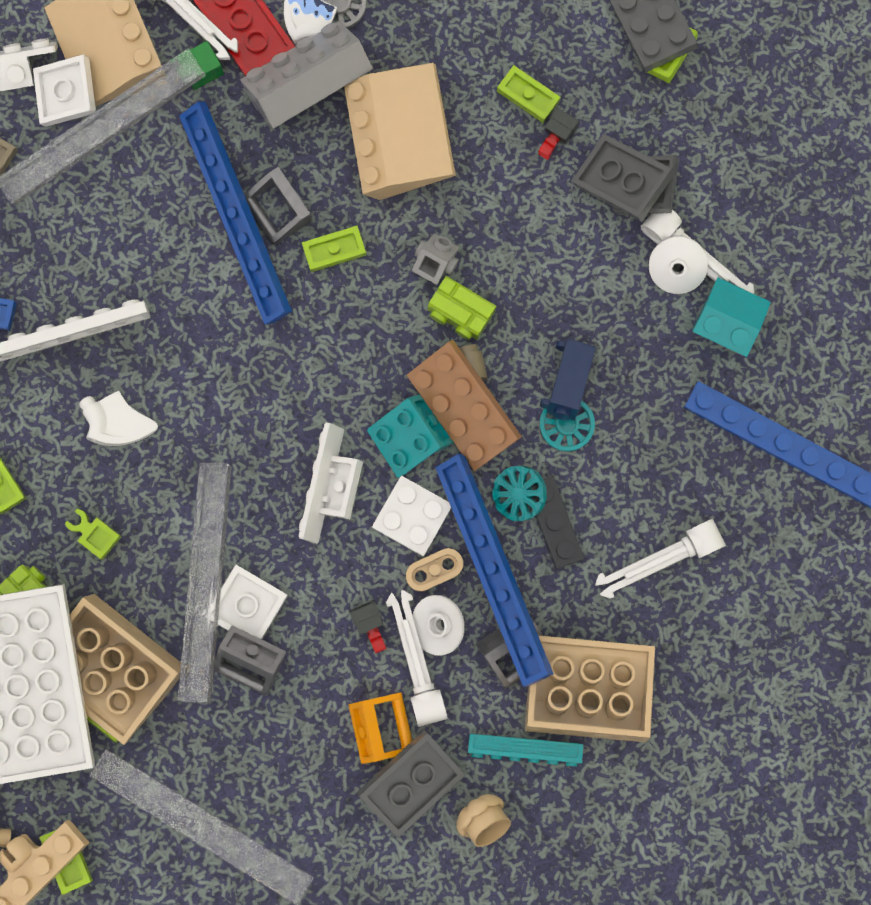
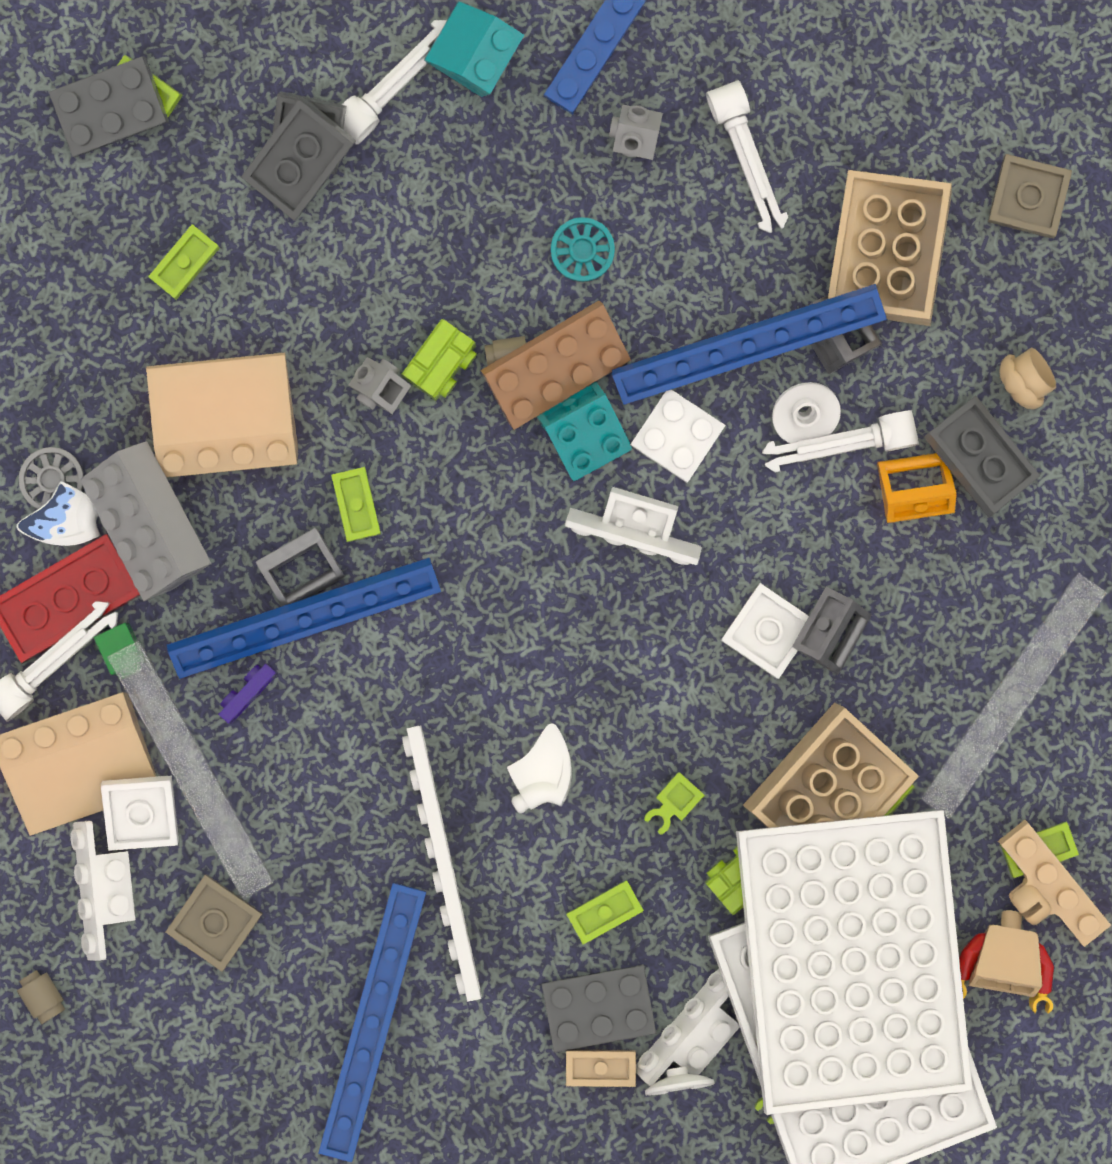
camera: 85 degrees left, 5 degrees up
(161, 163) = (257, 681): none -> dark purple plate
(204, 583) = (740, 674): clear plate -> none
(367, 619) = (796, 493): pearl dark grey piece -> none
(434, 570) = (744, 413): tan plate -> none
(519, 493) = (661, 309): teal wheel -> none
(525, 748) = (950, 325): teal piece -> none
(557, 527) = (696, 273): black plate -> none
(560, 128) = (229, 227): pearl dark grey piece -> none
(570, 379) = (534, 240): dark blue brick -> none
(647, 812) = (1029, 196): none -> dark tan plate
(672, 460) = (636, 131): none -> light grey brick
(682, 251) = (392, 107): white dish -> none

